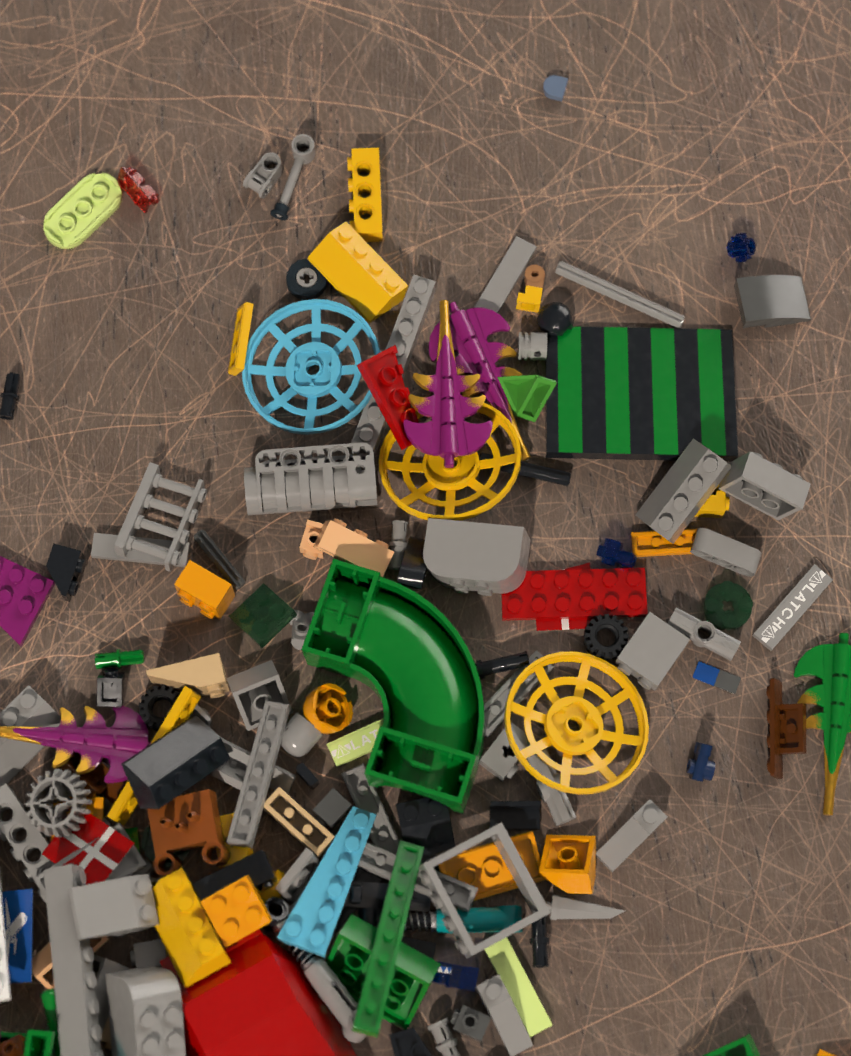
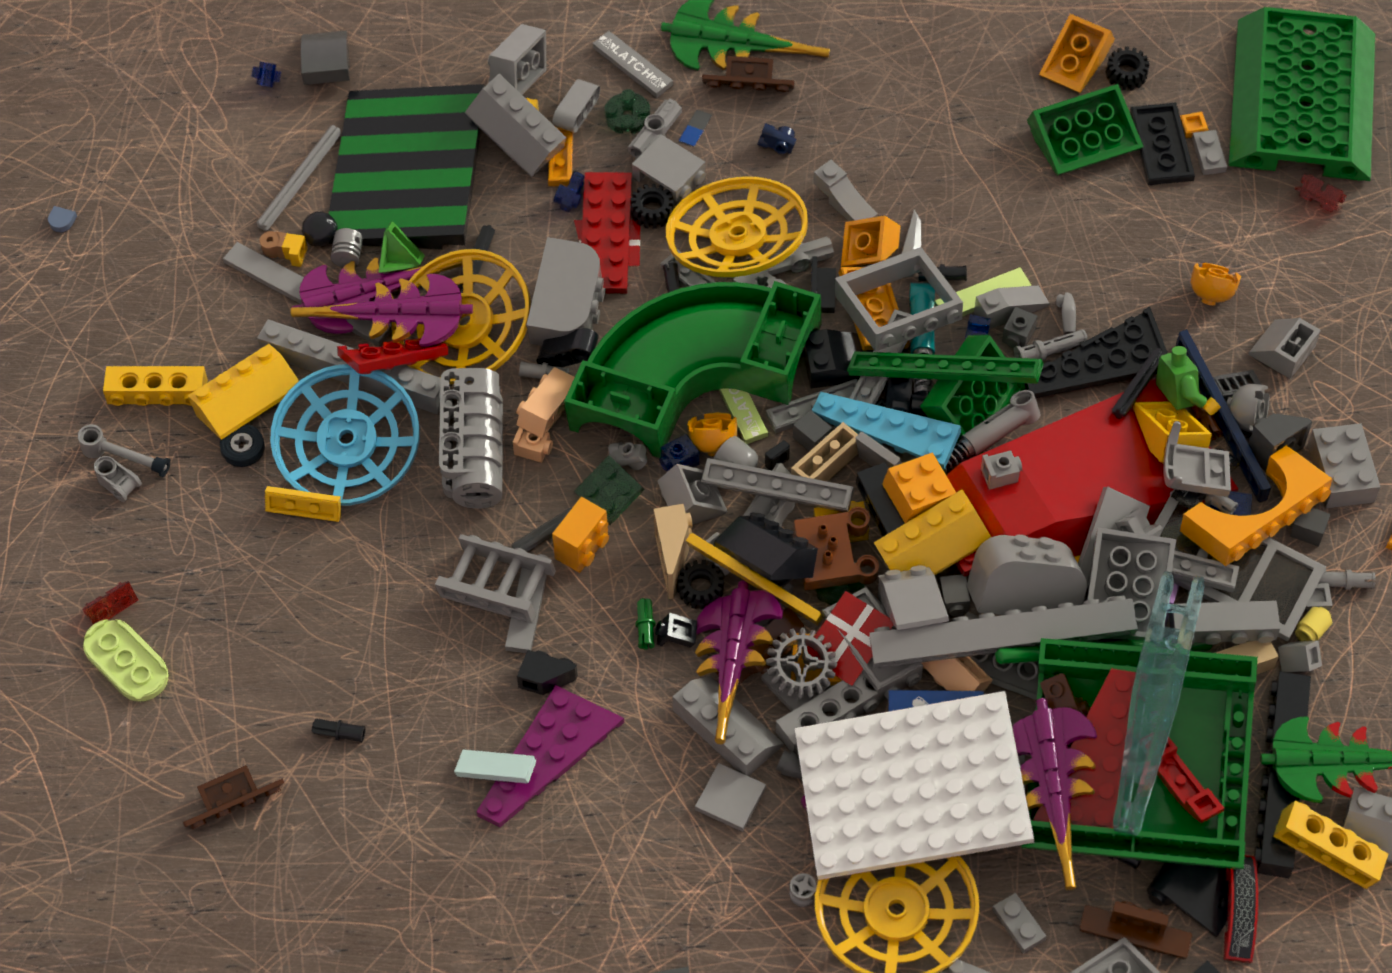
camera: 85 degrees left, 15 degrees down
(253, 984) = (1001, 469): none -> light grey brick
(302, 678) = (679, 451): none -> clear blue brick

